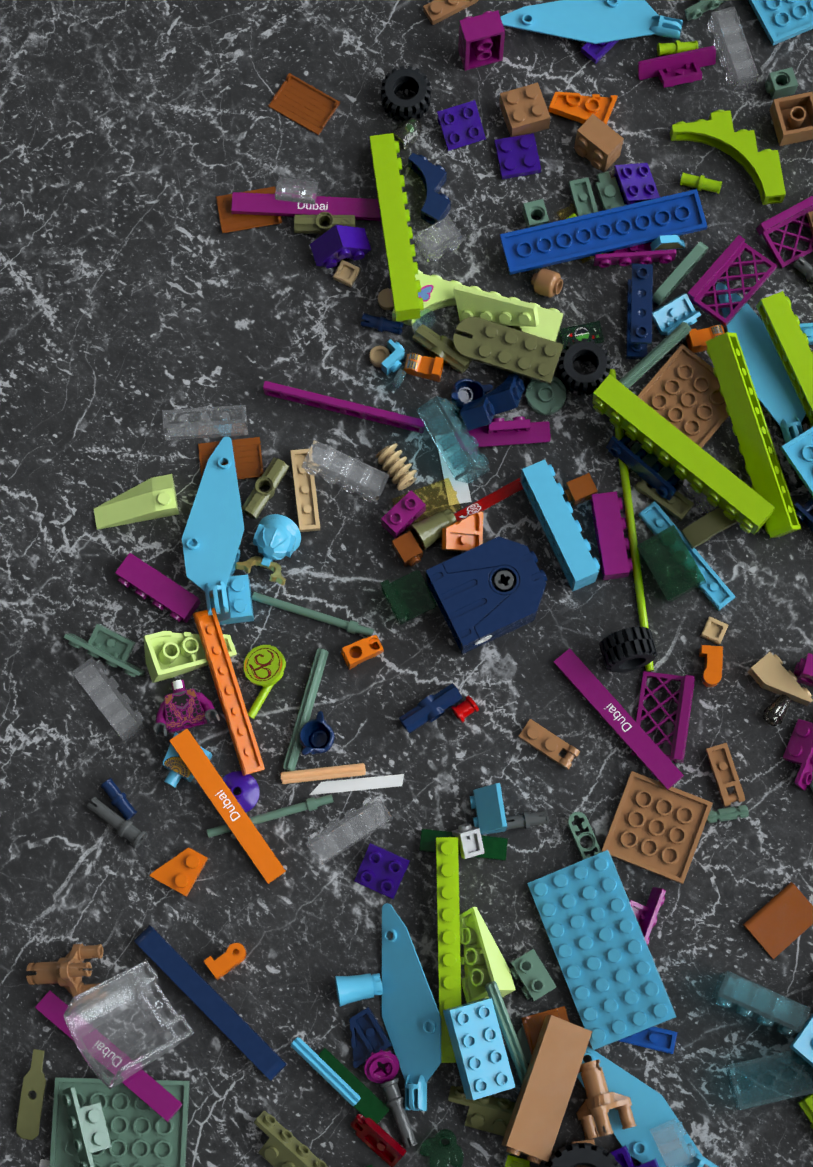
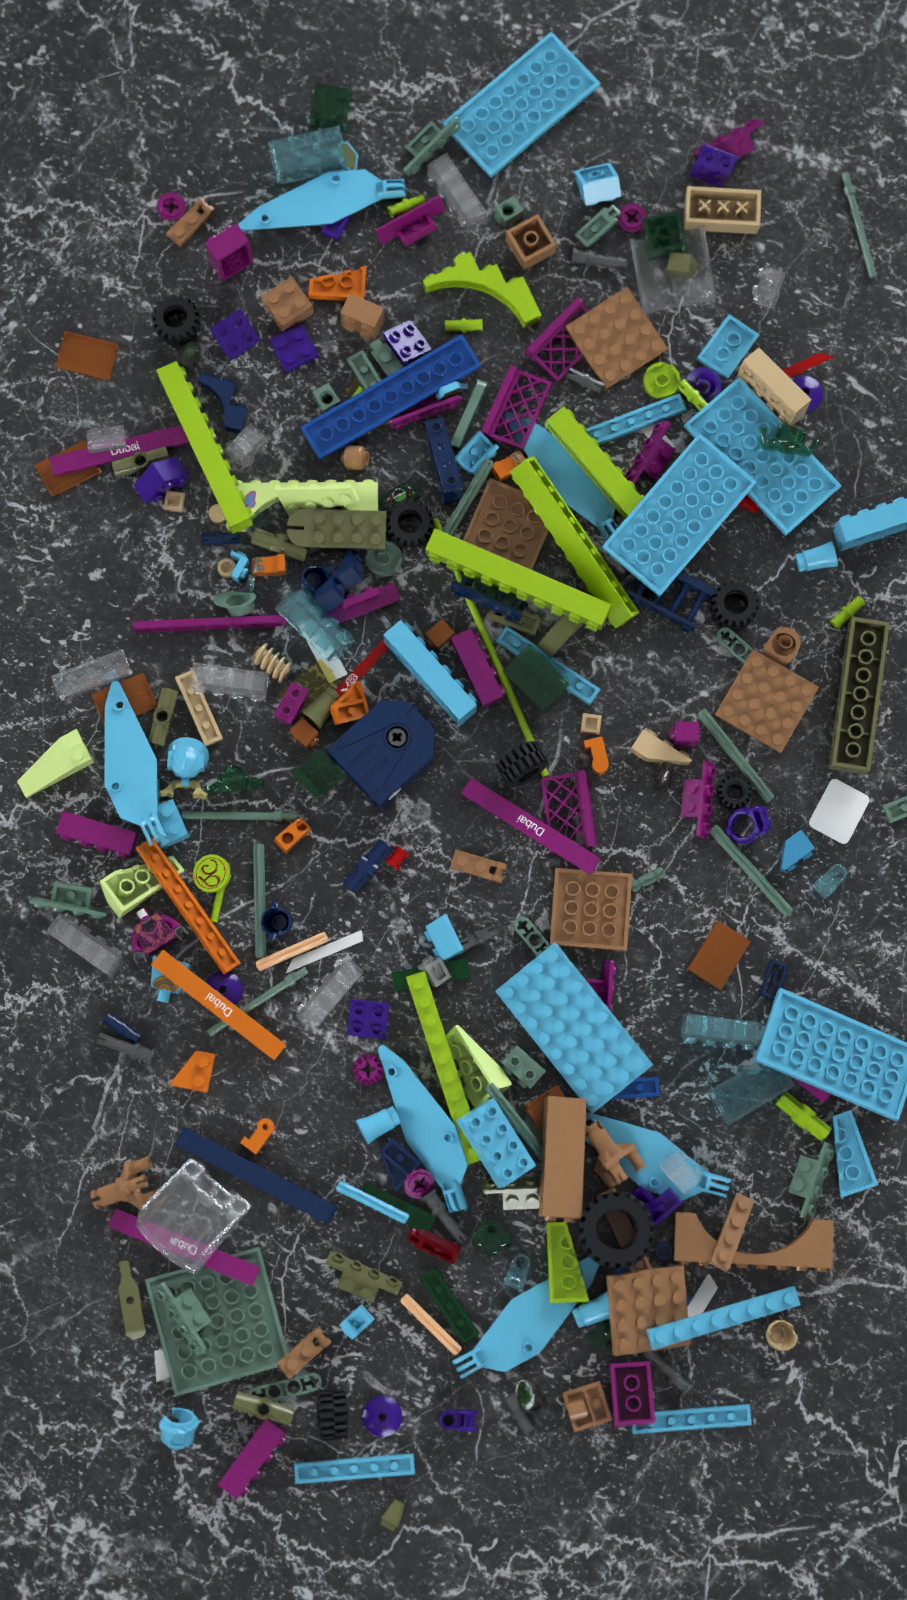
camera: 20 degrees left, 5 degrees up
(317, 576) = (234, 781): none -> clear green piece
(356, 930) = (374, 1076): none -> magenta gear
(378, 394) = (237, 603): none -> sand green piece
(725, 774) = (635, 845): medium nougat plate -> none

